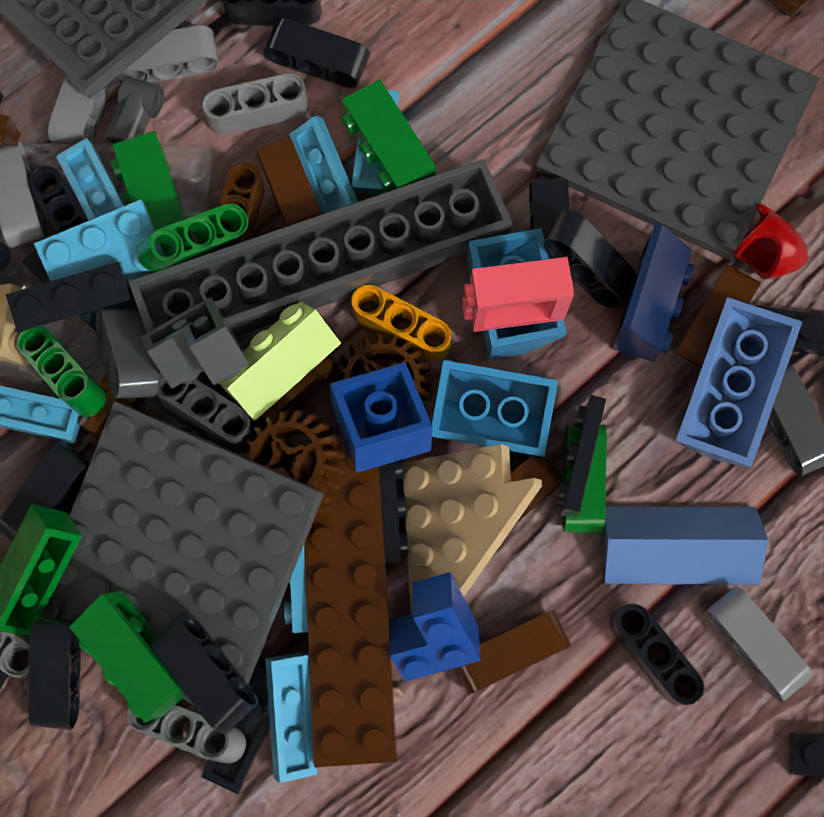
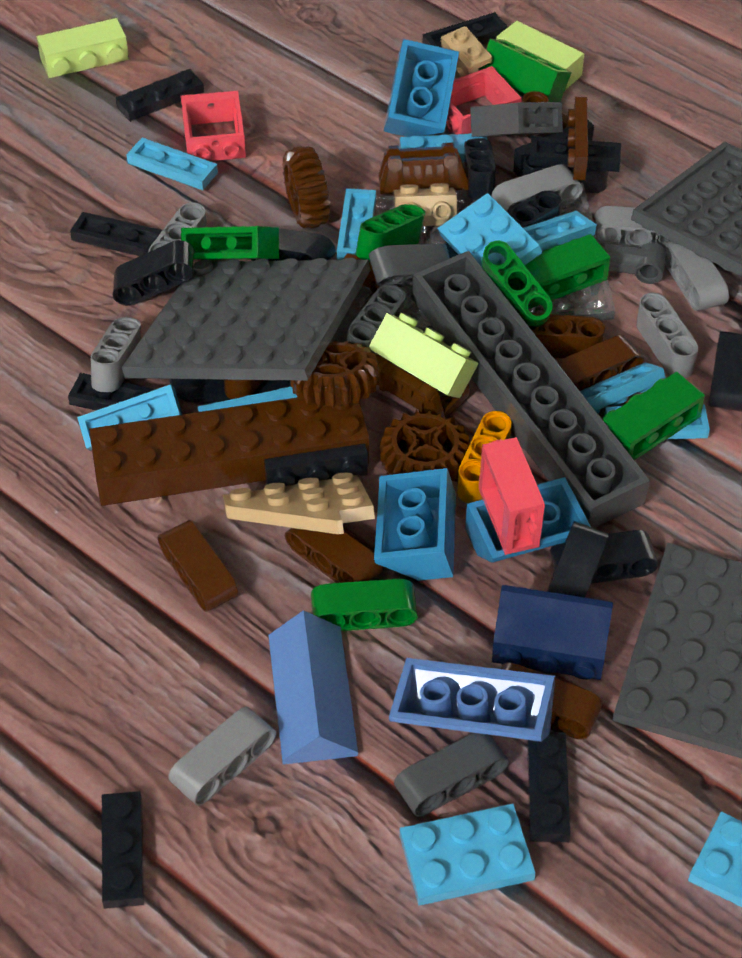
camera: 80 degrees right, 25 degrees down
(69, 296) = (448, 220): black plate -> none
(121, 645) = (167, 299): green brick -> none
(195, 343) = (419, 290): dark grey brick -> none
(204, 673) = (155, 334): black beam -> none
(381, 417) = (383, 421): blue brick -> none
(438, 633) = (209, 493): blue brick -> none
(580, 456) = (375, 579): black plate -> none
(674, 663) = (197, 687): black beam -> none
(772, 246) = (638, 744): red piece -> none

